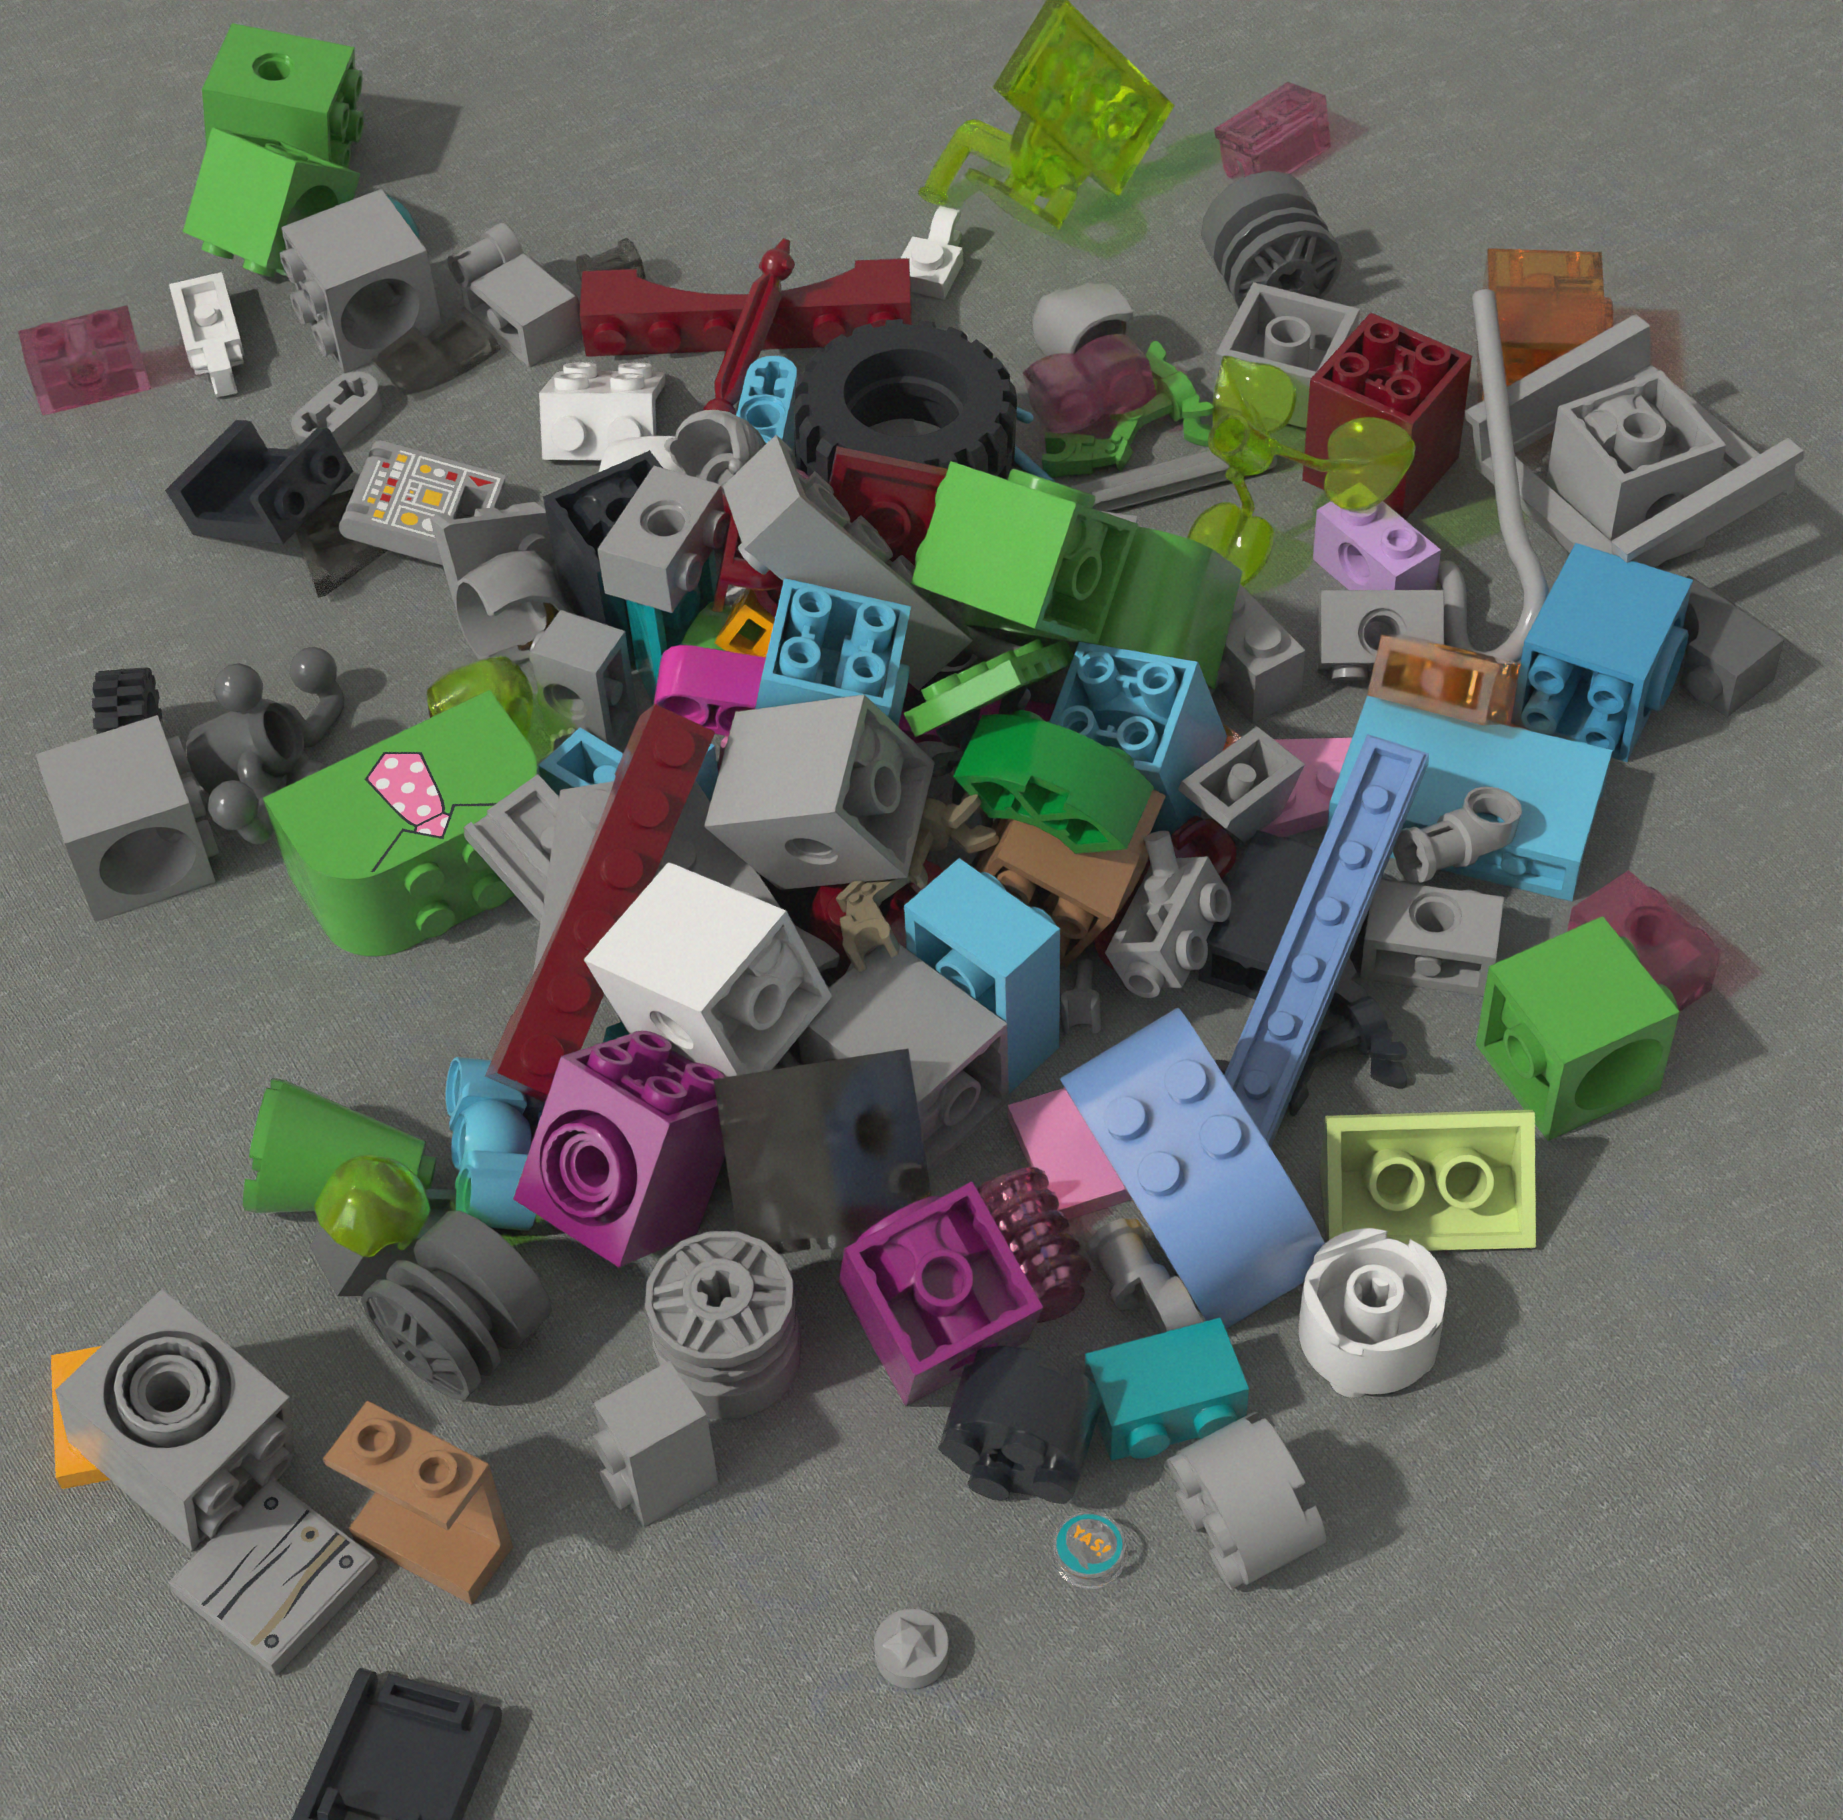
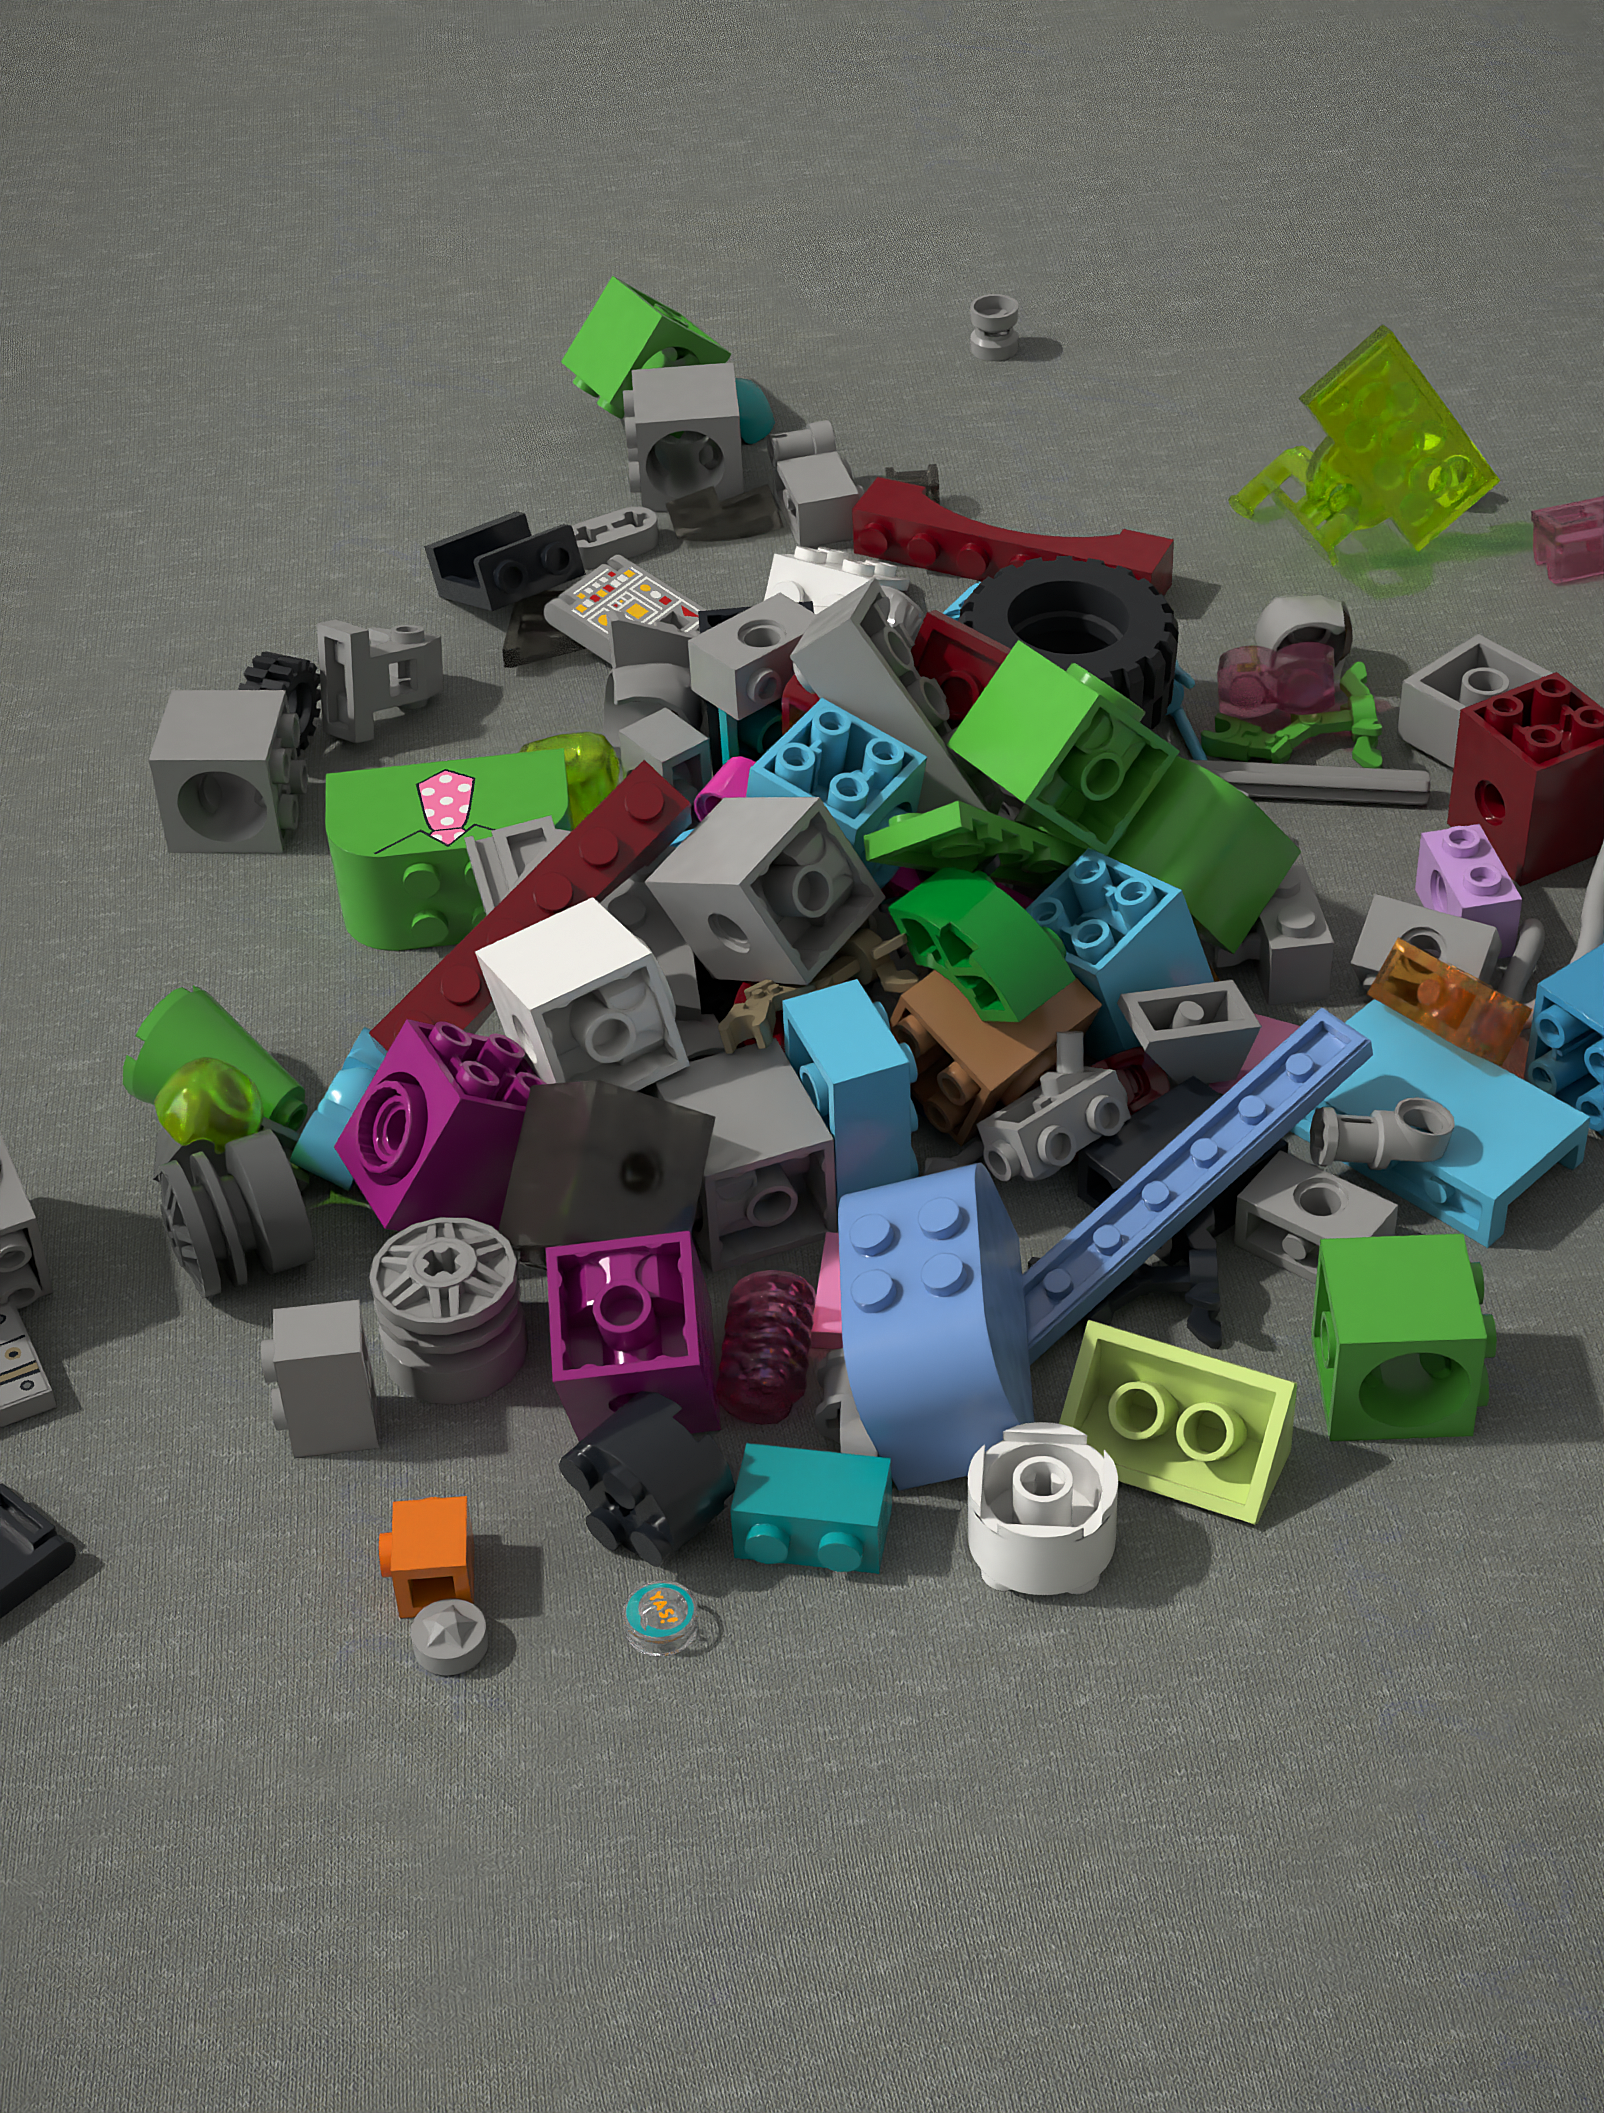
camera: 25 degrees right, 10 degrees down
(84, 360) = (410, 455): clear pink brick -> none
(209, 329) = (548, 448): white hinge -> none
(211, 635) = (395, 671): none -> light grey tile
(261, 741) = (372, 739): dark grey wheel -> none
(286, 91) = (715, 282): bright green brick -> none
(430, 1503) = (114, 1368): medium nougat panel -> none
(583, 59) = (994, 332): none -> light grey wheel
(752, 327) = (1003, 545): dark red wheel -> none
(852, 1577) = (429, 1552): none -> orange brick
(938, 259) = (1208, 559): white plate -> none
(1247, 1499) = (813, 1618): light grey brick -> none
(1258, 400) = (1414, 734): clear neon green plant -> none
(1270, 235) = (1526, 602): dark grey wheel -> none
(1665, 942) = (1532, 1301): clear pink brick -> none

